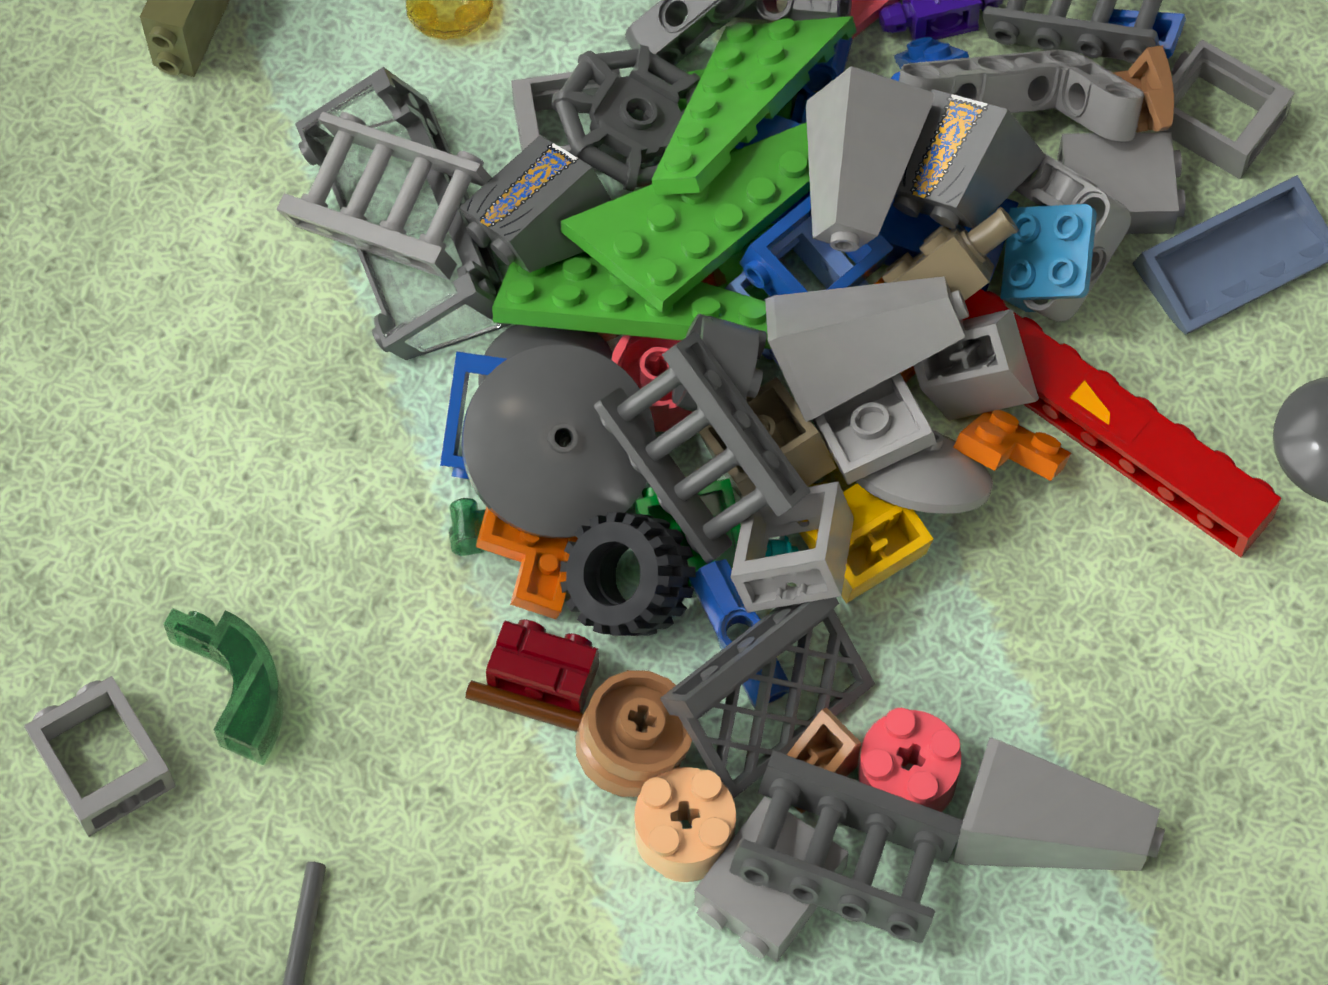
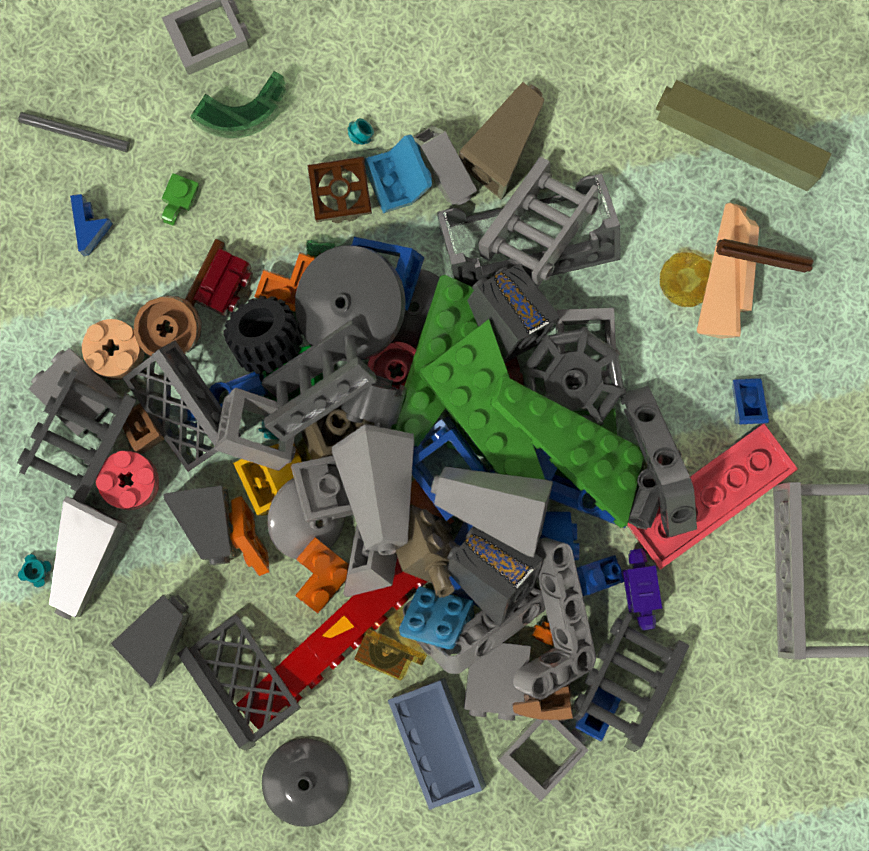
camera: 90 degrees right, 20 degrees up
(256, 268) = (499, 144): none -> dark tan slope
(256, 490) = (360, 131): none -> teal plate
(297, 354) = (445, 165): none -> light grey slope
(324, 409) = (398, 175): none -> dark azure bracket
(382, 457) = (337, 168): none -> reddish brown piece
(395, 763) = (178, 194): none -> bright green plate
(482, 904) = (87, 232): none -> blue slope
(957, 622) = (205, 521): none -> dark grey slope
(973, 556) = (245, 537): none -> orange plate
(1037, 126) = (543, 633): none -> orange plate
(1102, 897) = (42, 567): none -> teal plate
(1114, 337) = (387, 654): none -> clear yellow panel
(1166, 675) = (154, 638): none -> dark grey slope
(1241, 566) = (217, 695): none -> dark grey fence

